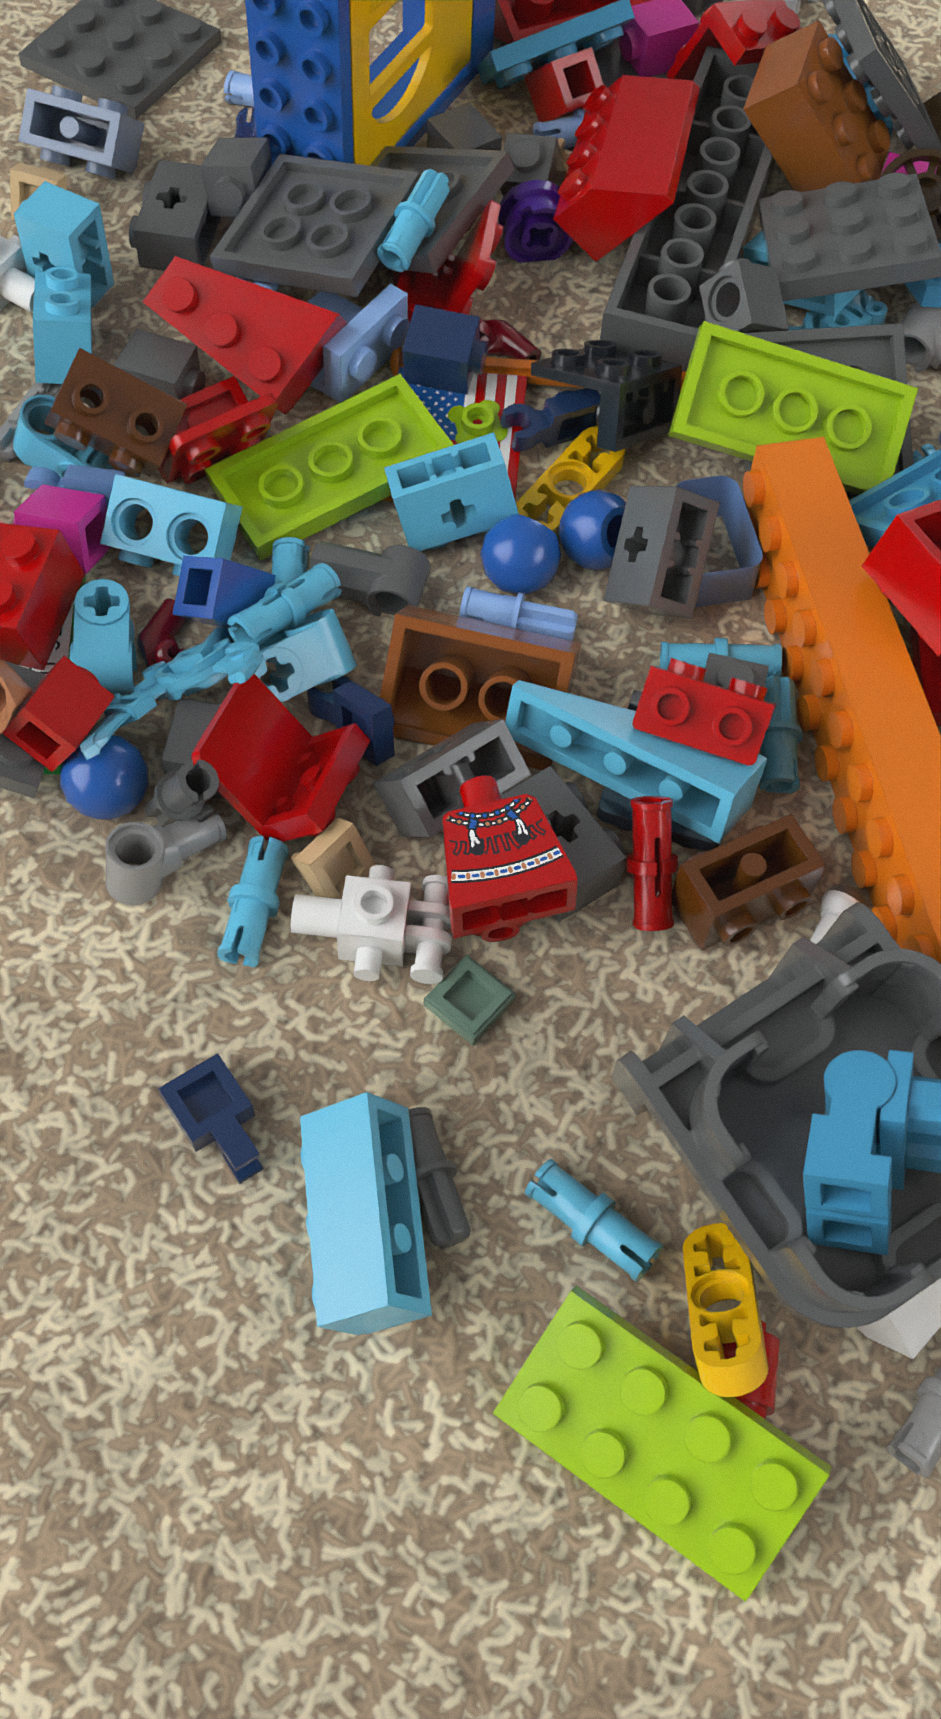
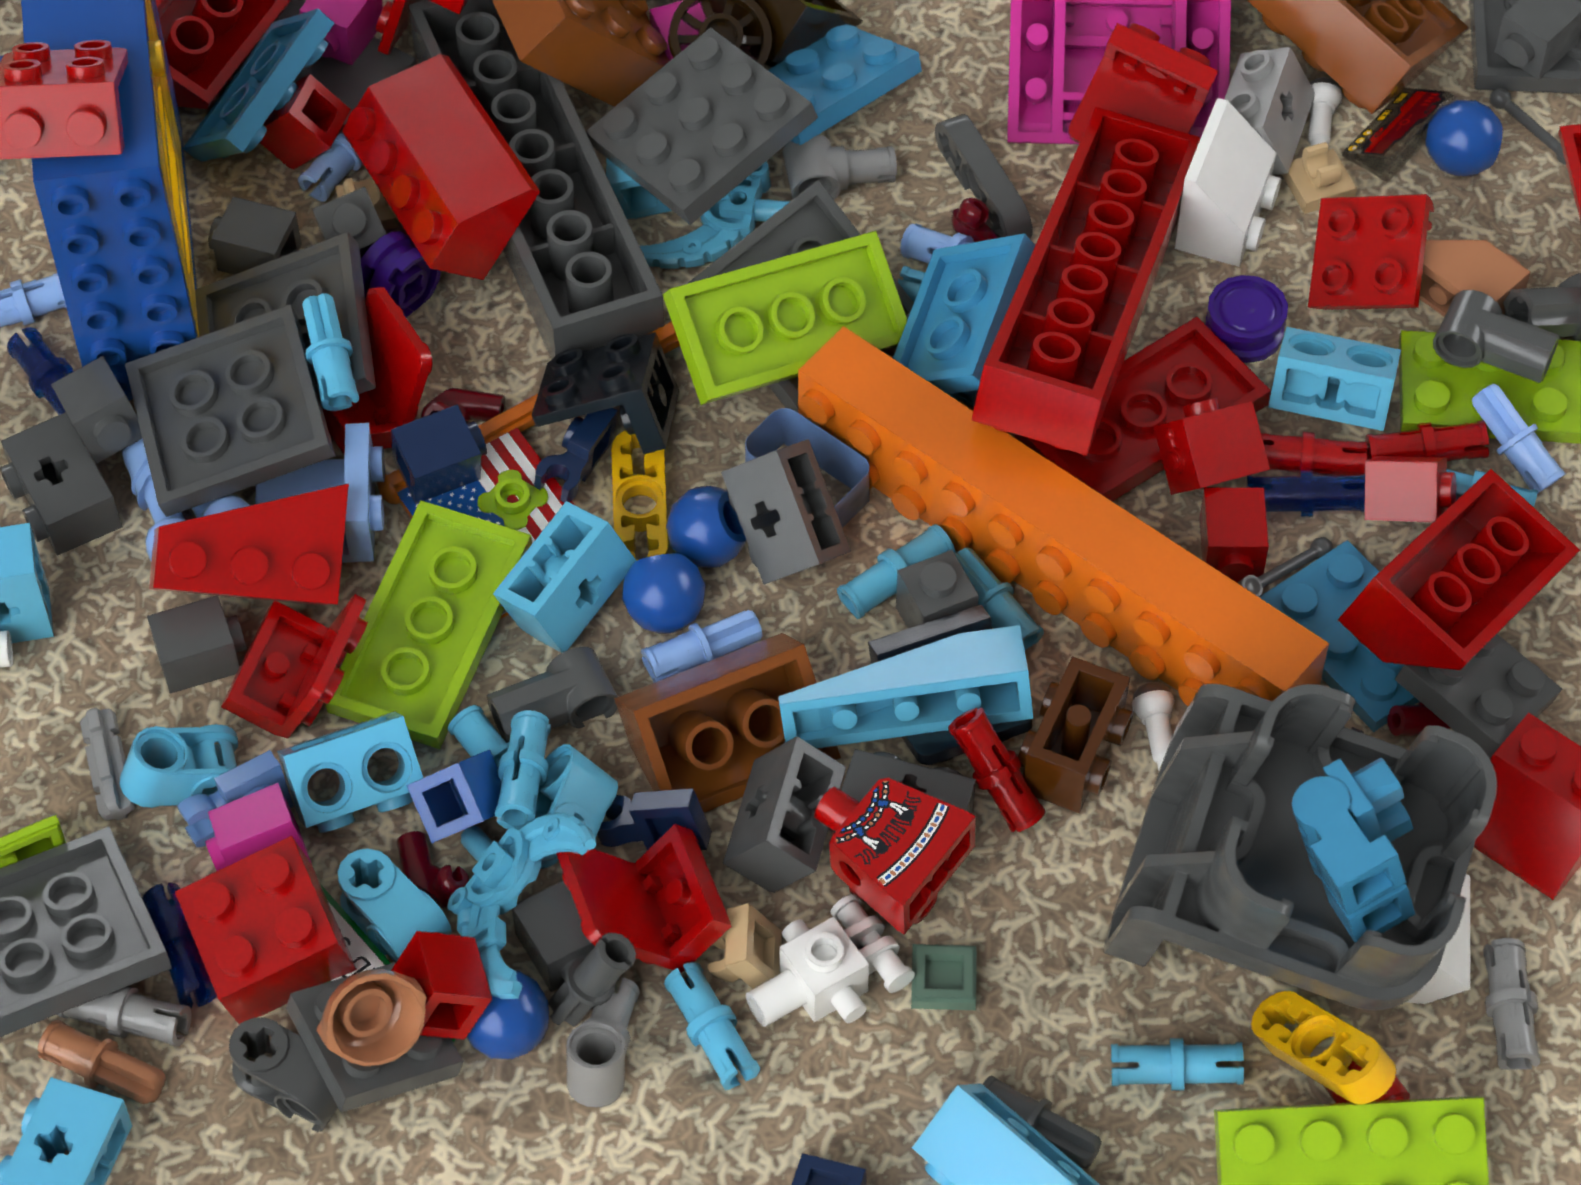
camera: 35 degrees left, 5 degrees down
(60, 321) = (77, 659): medium azure brick -> none
(115, 414) = (230, 706): reddish brown brick -> none
(703, 714) = (949, 622): red bracket -> none
(744, 298) = (692, 242): dark grey brick -> none

